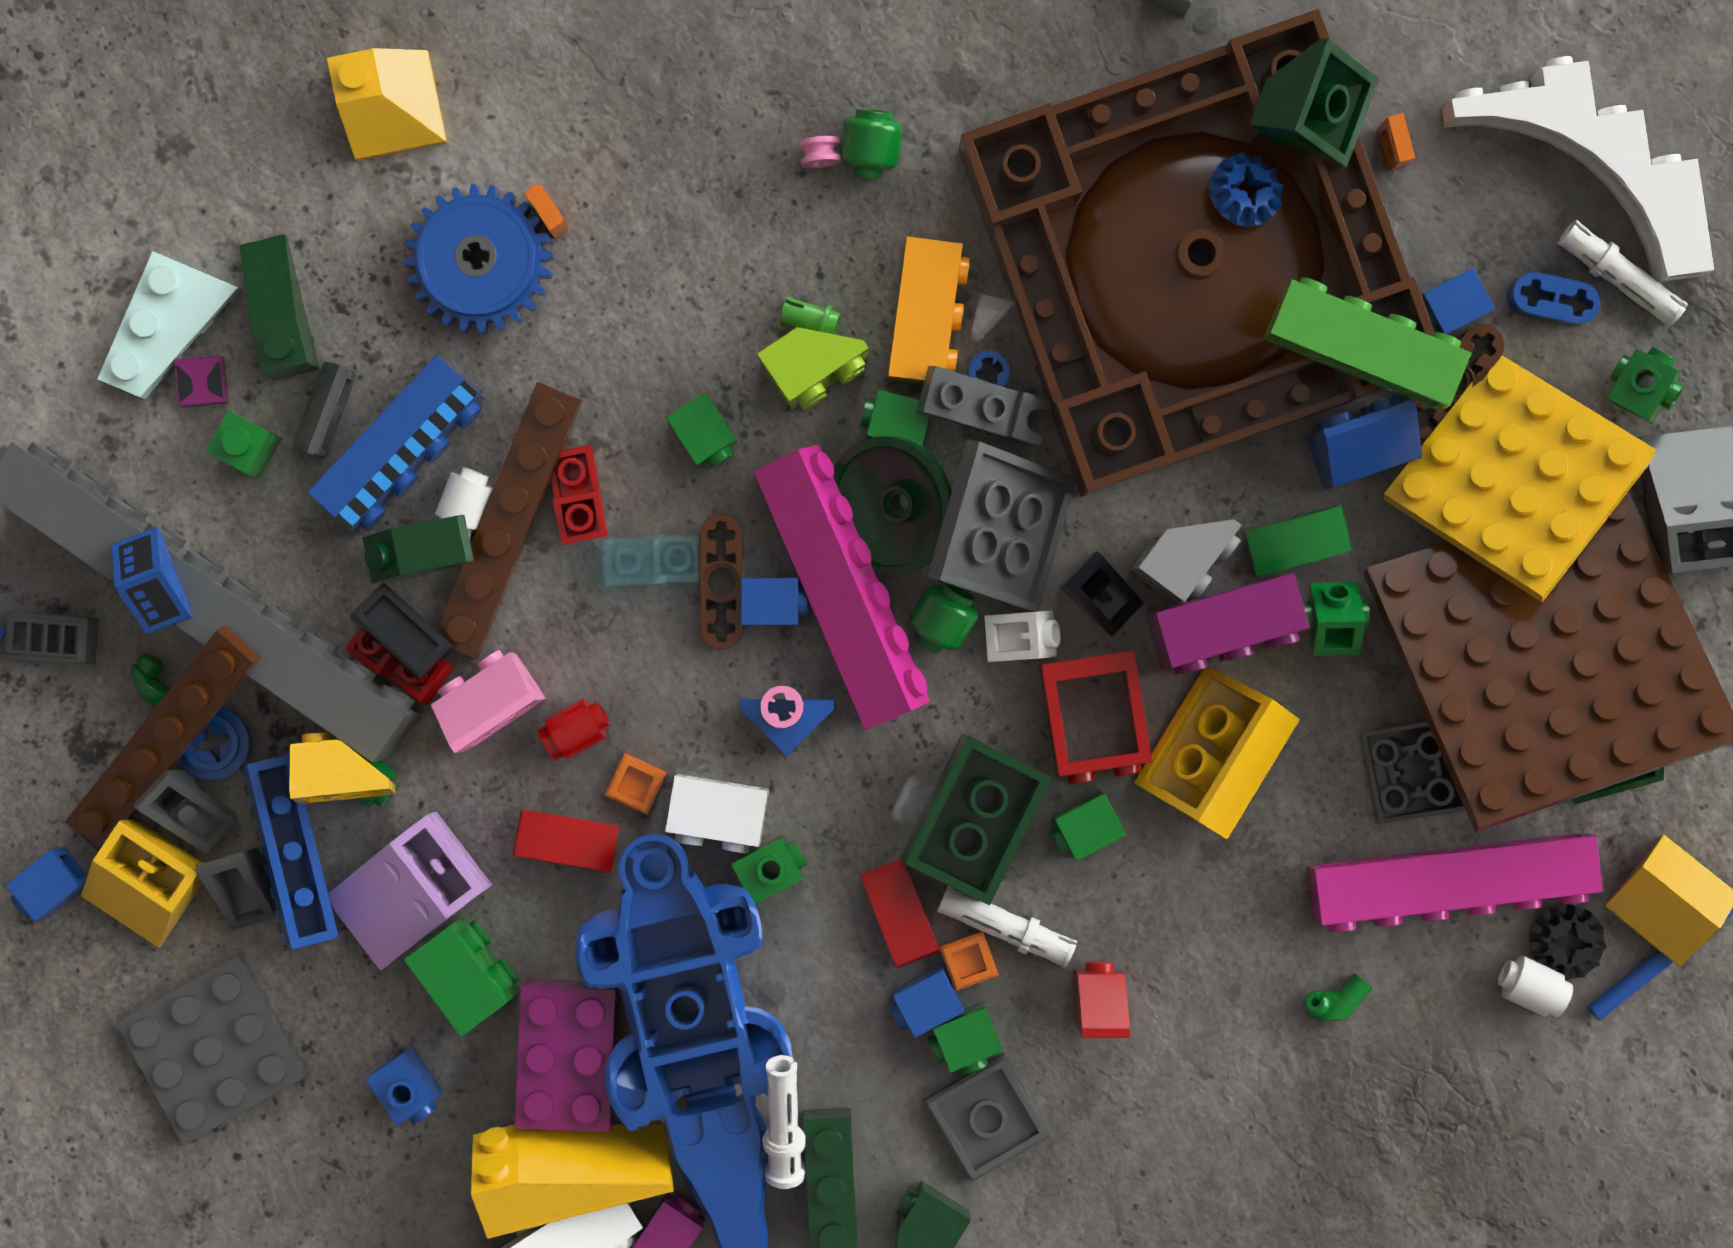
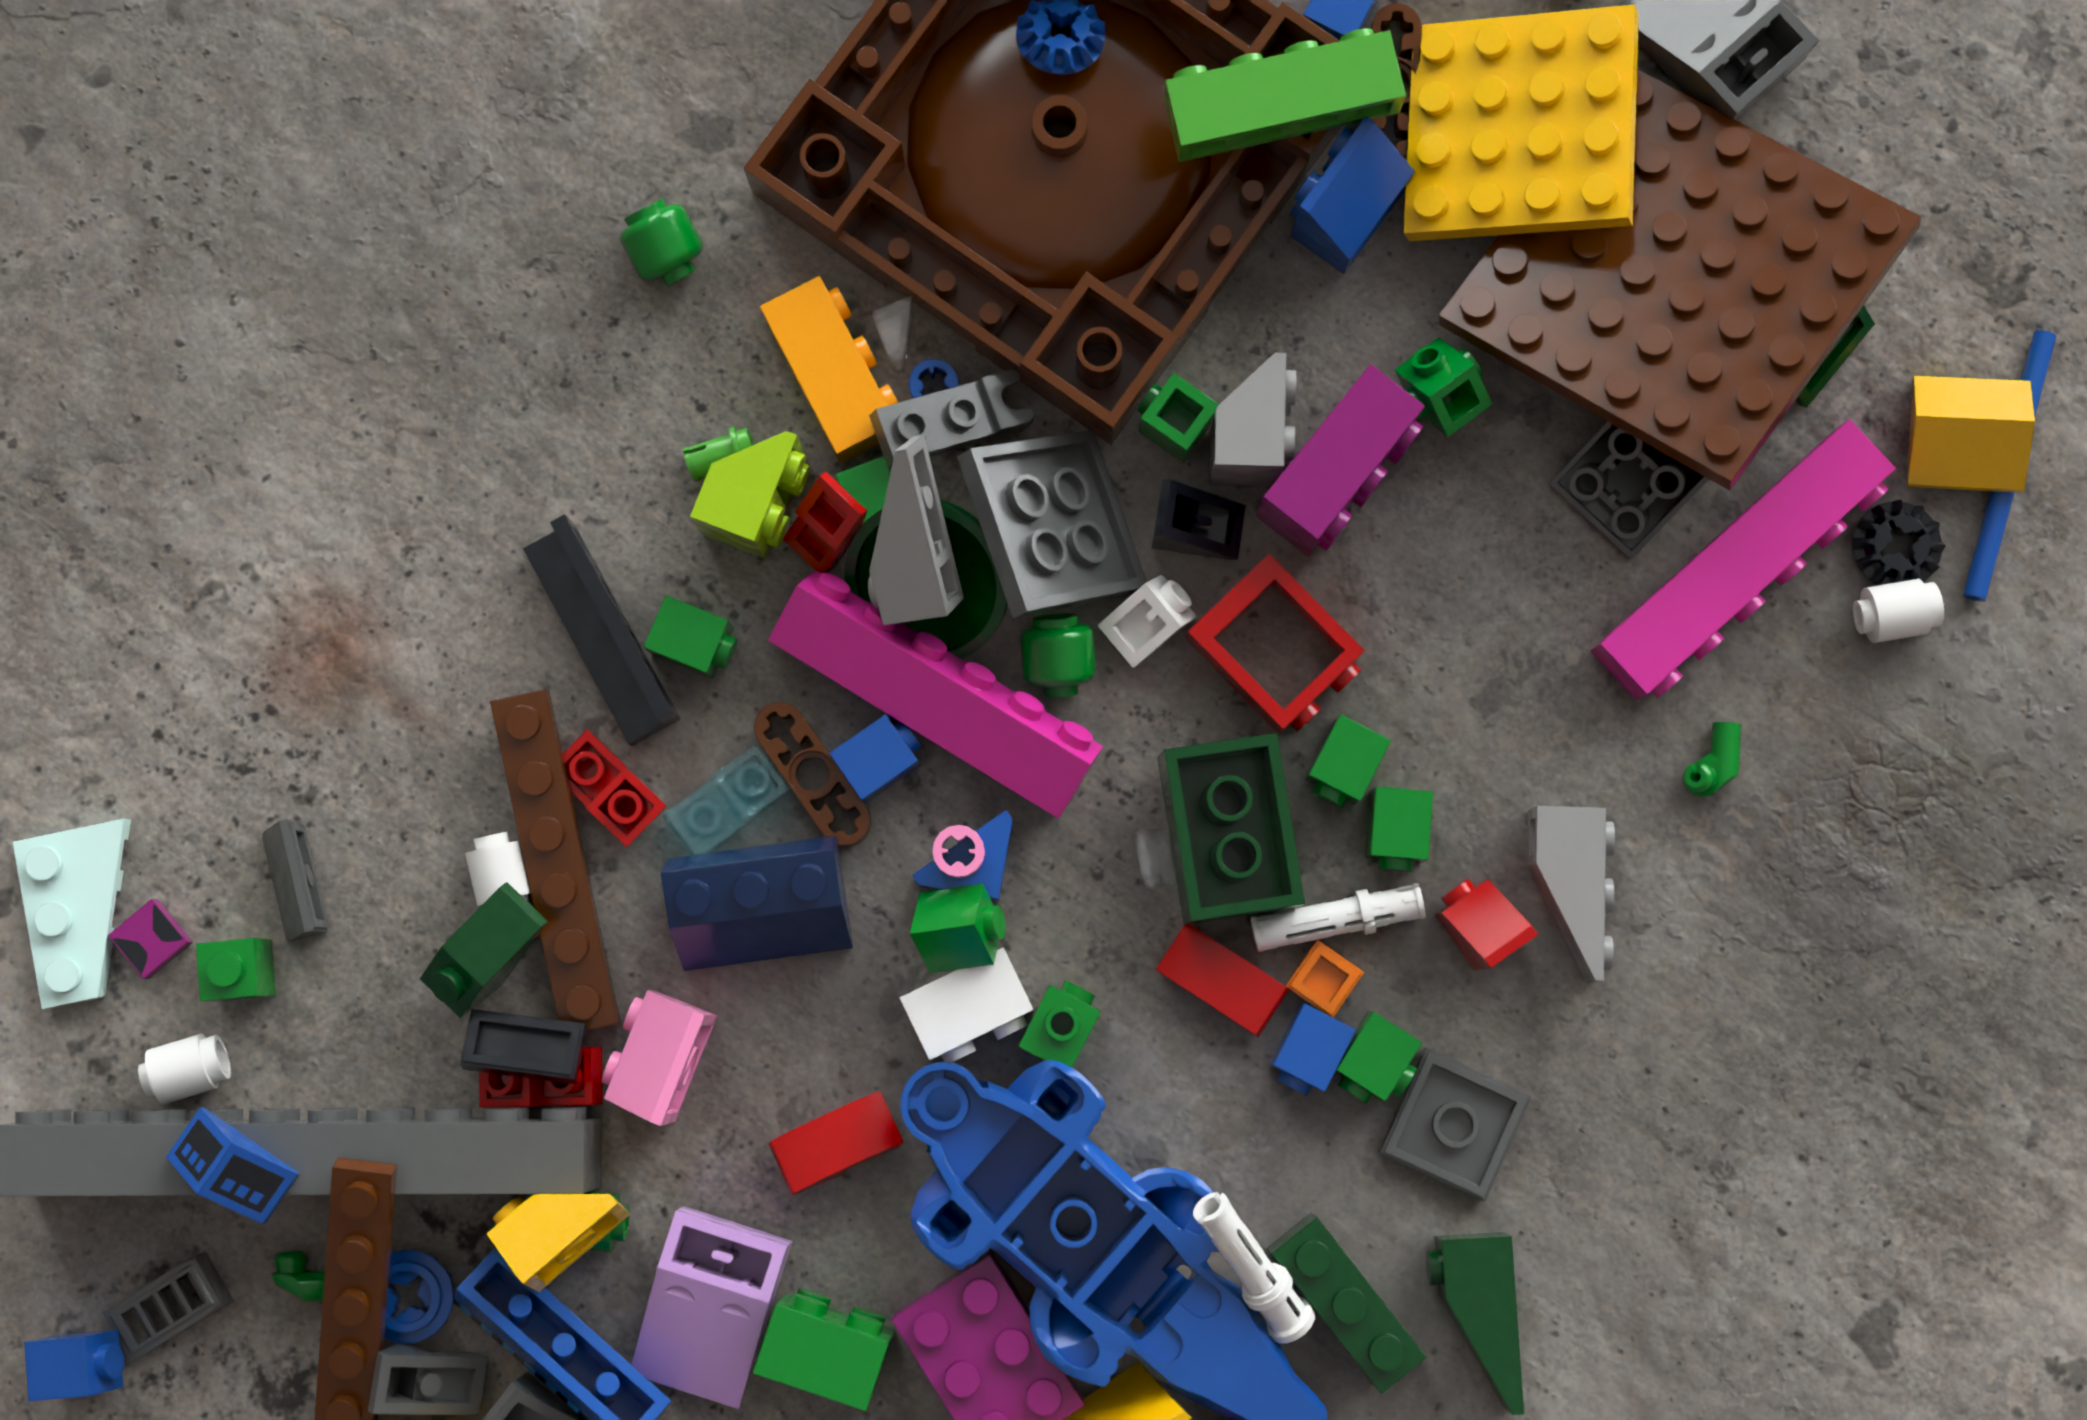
camera: 30 degrees left, 5 degrees down
(165, 486) = (184, 1068): none -> white brick
(277, 309) = (179, 813): dark green slope -> none
(387, 101) = (150, 531): yellow slope -> none
(397, 445) = (393, 863): blue brick -> none
(452, 238) = (309, 616): blue gear -> none
(547, 210) = (384, 528): orange tile -> none
(574, 729) = (766, 1024): red brick -> none
(624, 643) = (757, 903): none -> dark blue slope
(636, 783) = (867, 1036): orange tile -> none
(645, 384) = (601, 632): none -> black fence
(745, 756) = (957, 928): none -> green brick
(820, 152) = (617, 286): bright pink bush -> none
(846, 419) = (825, 524): none -> red slope
(889, 487) = (912, 555): none -> light grey slope
(1090, 896) = (1398, 827): none -> green brick
(1138, 511) = (1176, 416): none -> green brick
(1185, 1004) = (1568, 867): none -> light grey slope
(1217, 750) = (1421, 597): yellow slope -> none
(1299, 540) = (1353, 337): green slope -> none

